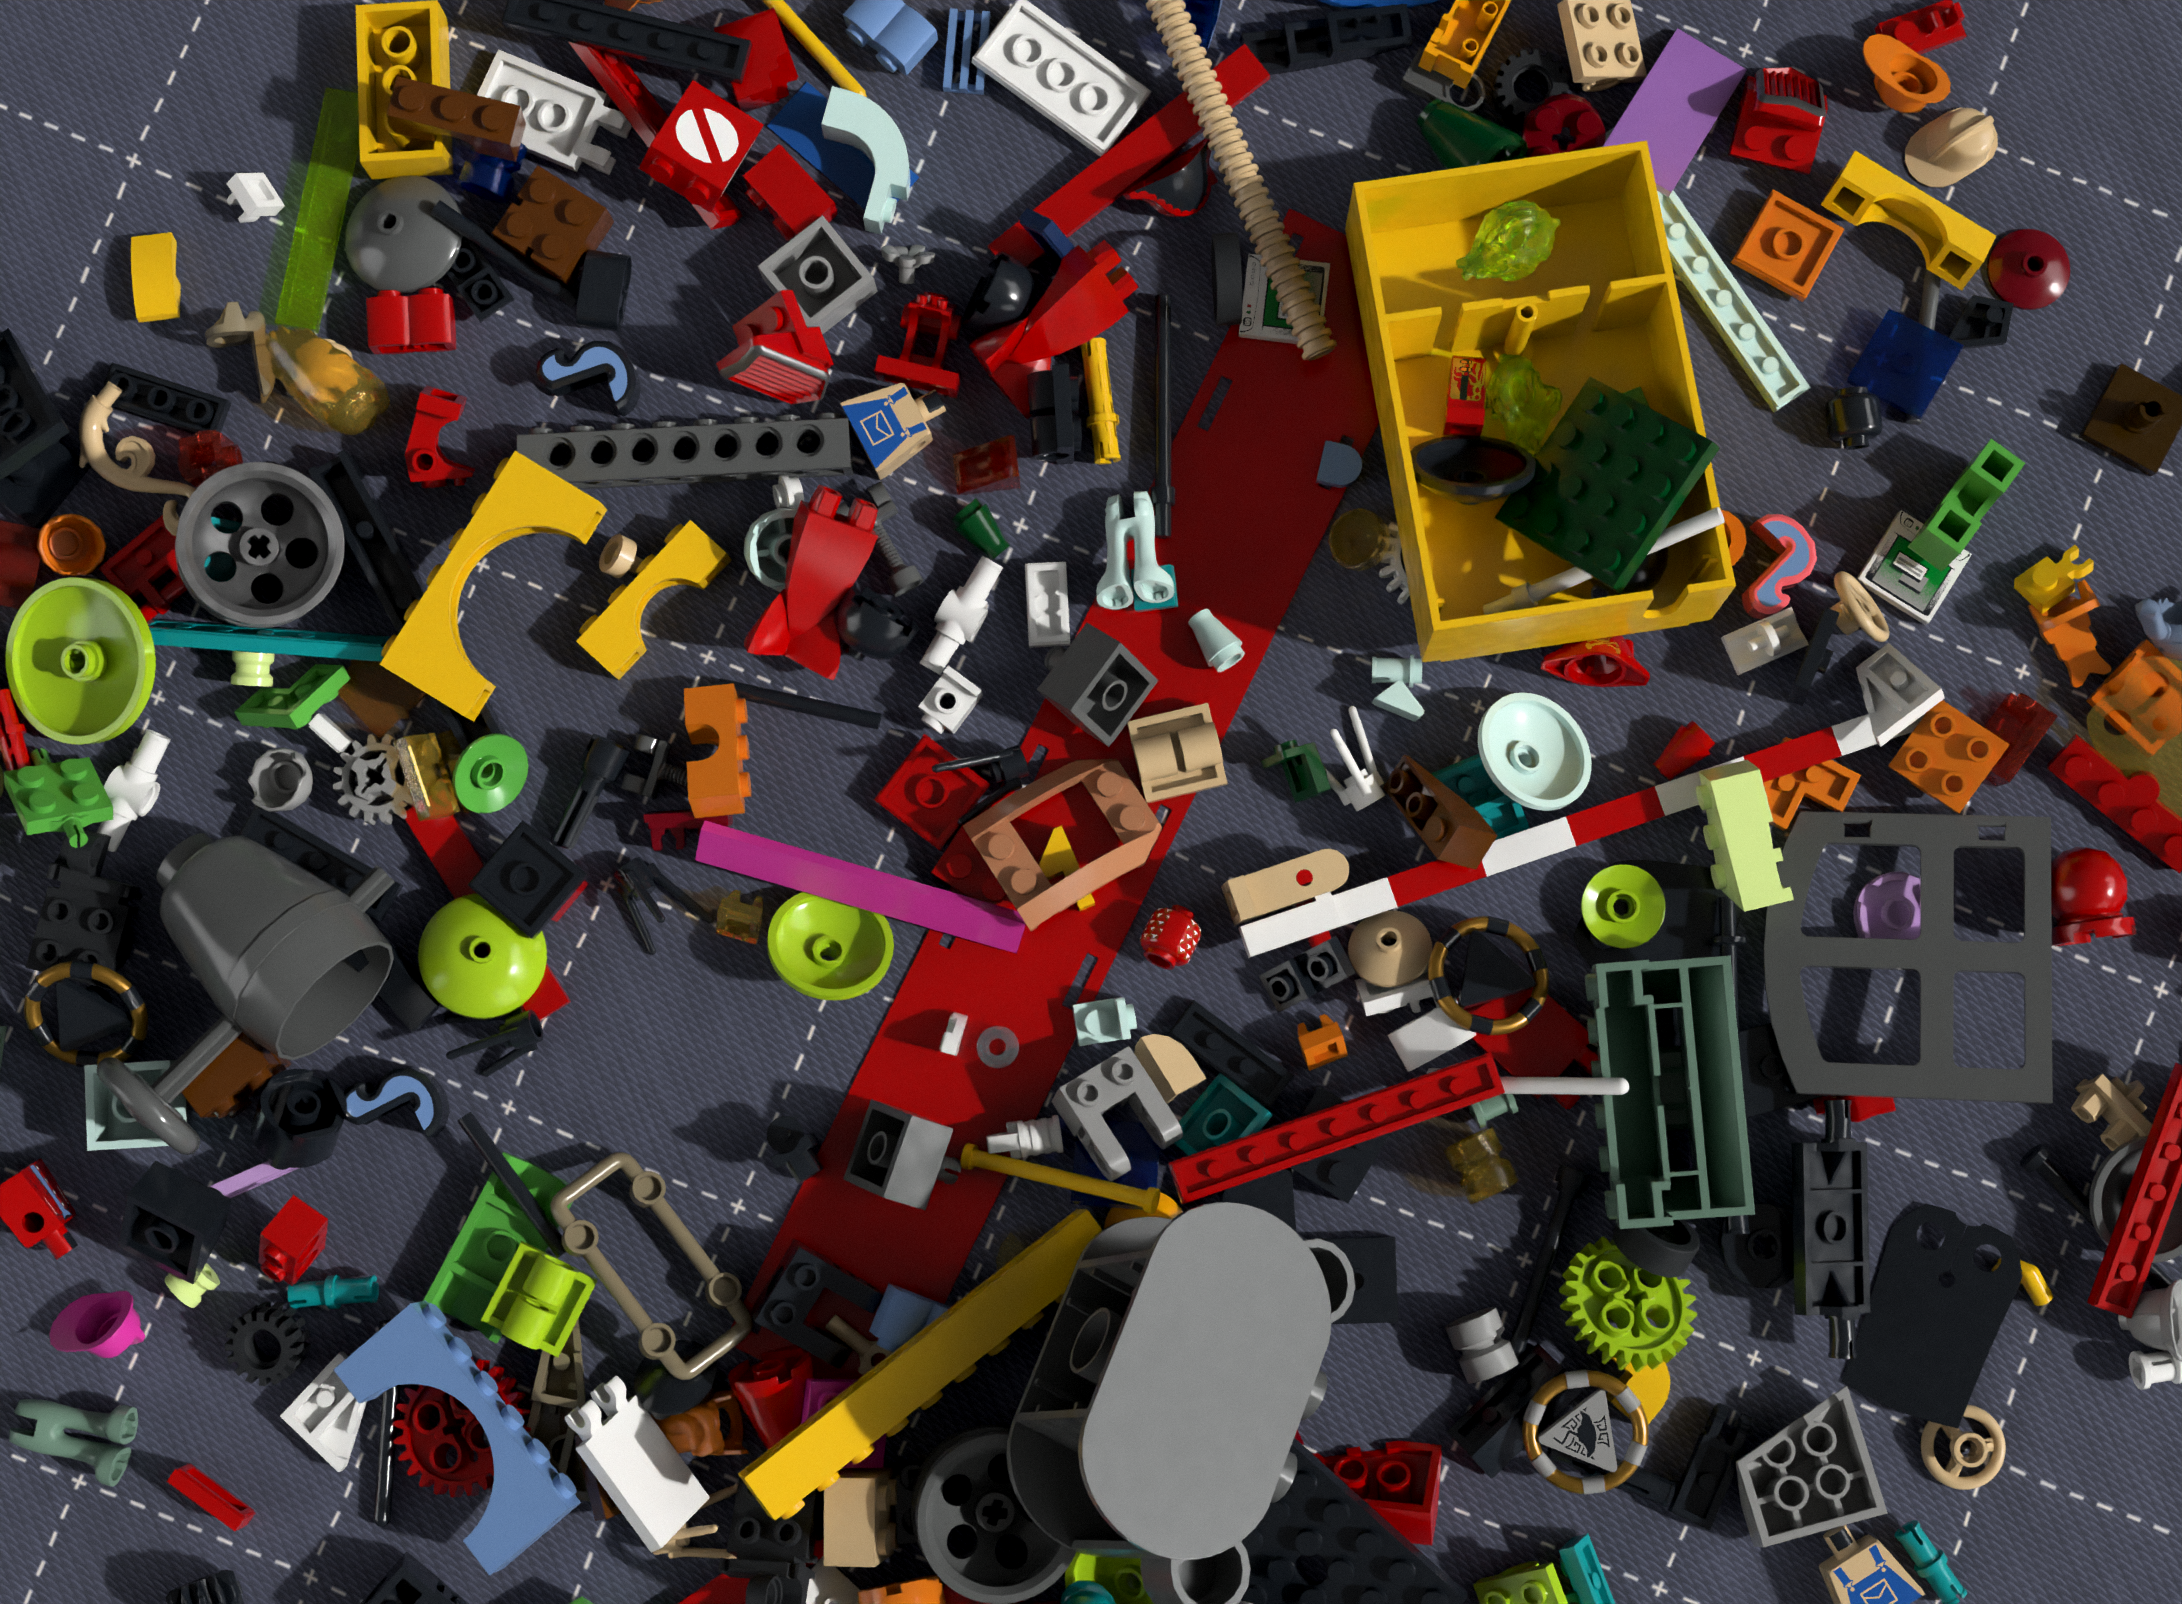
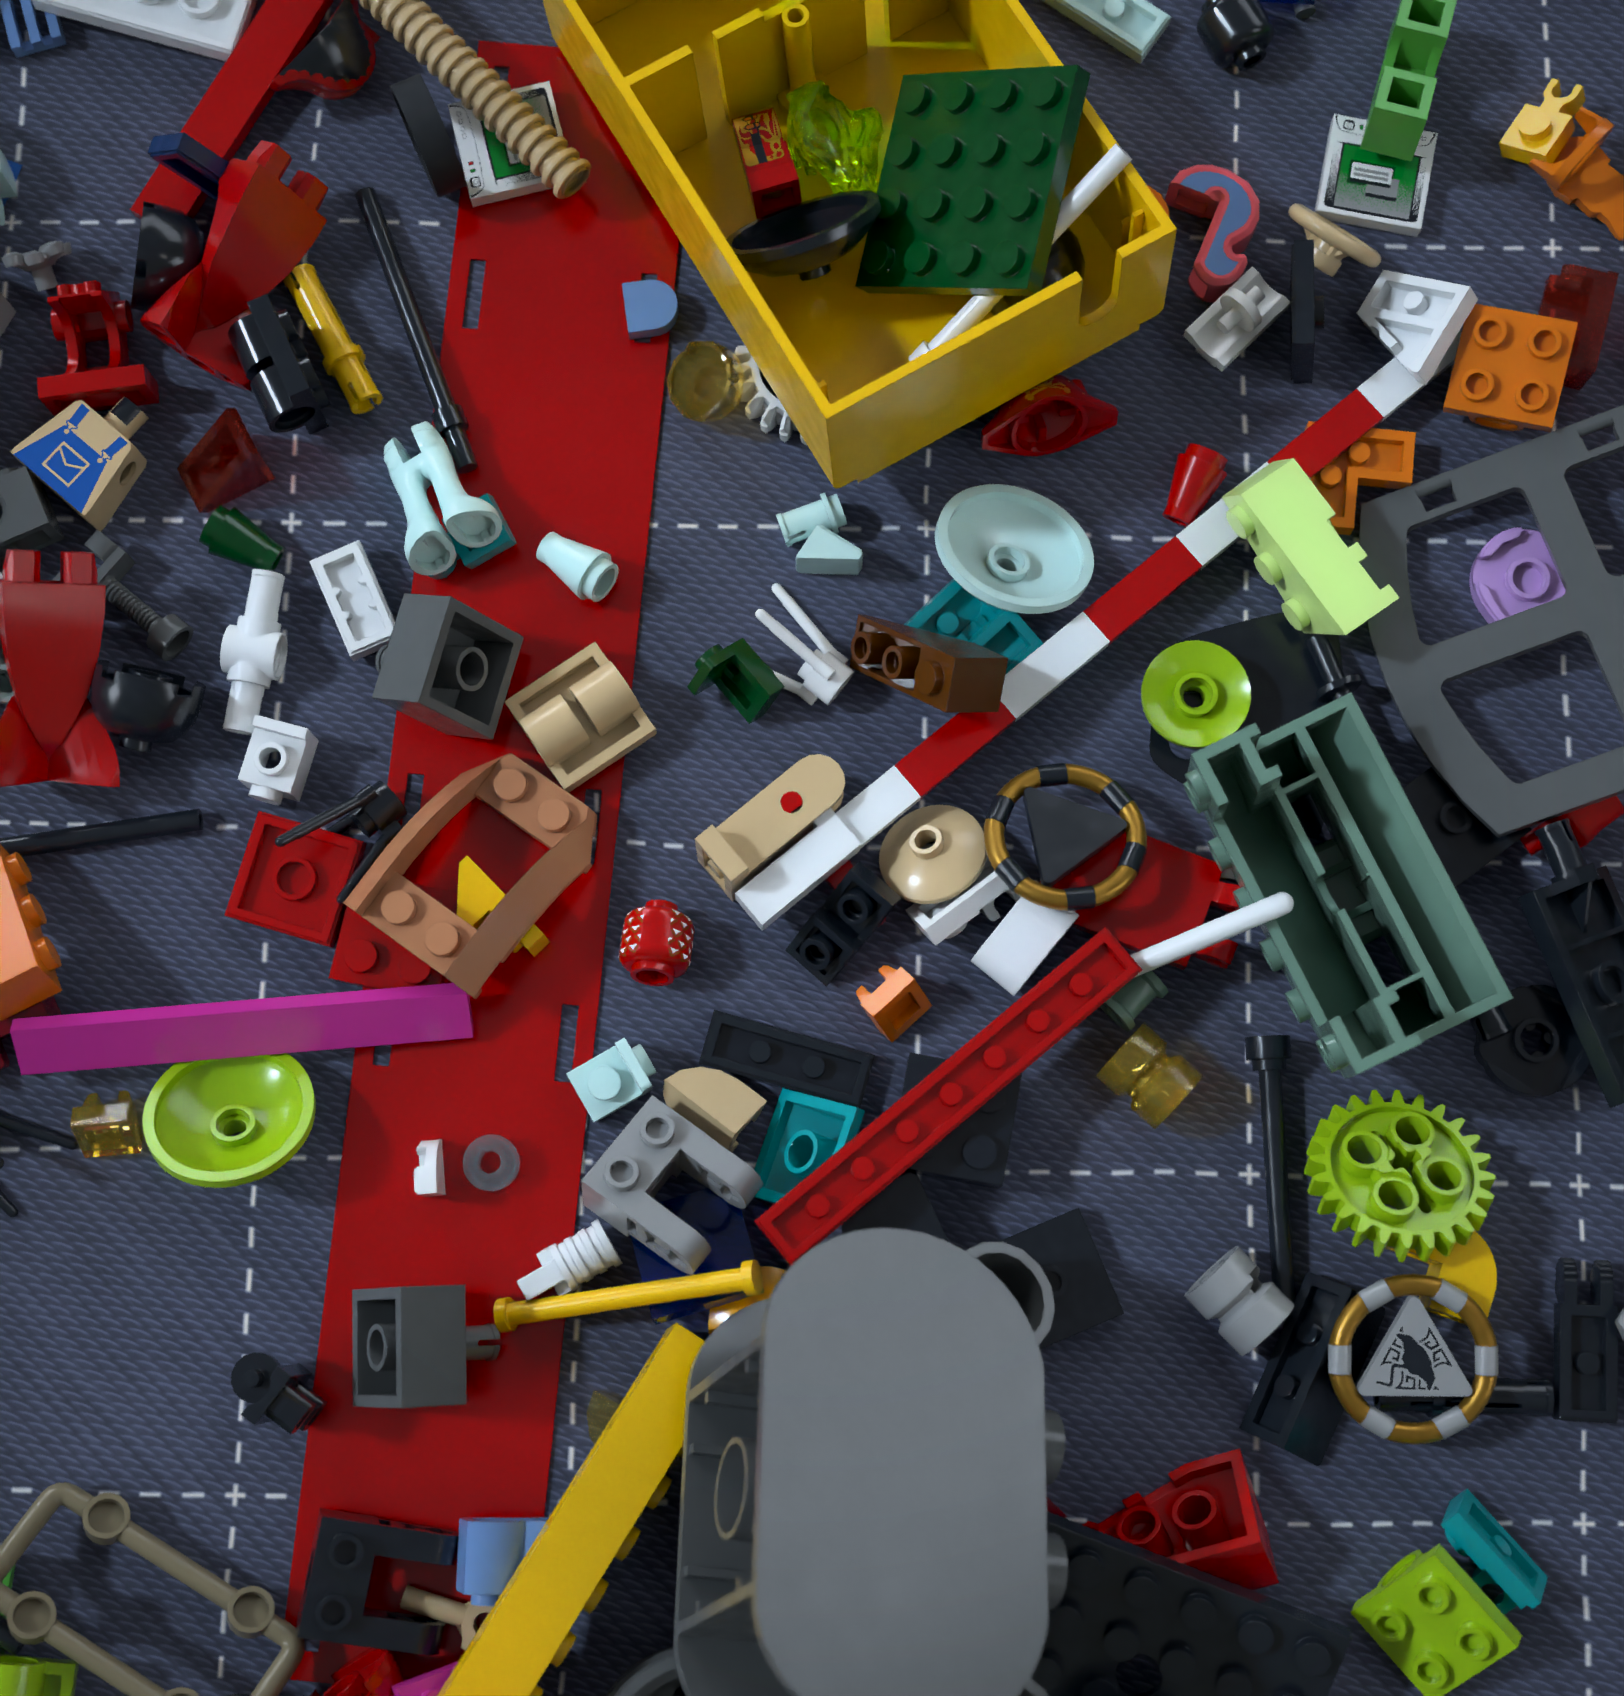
camera: 20 degrees left, 5 degrees down
(1659, 1249) = (1407, 1088): black tyre -> none

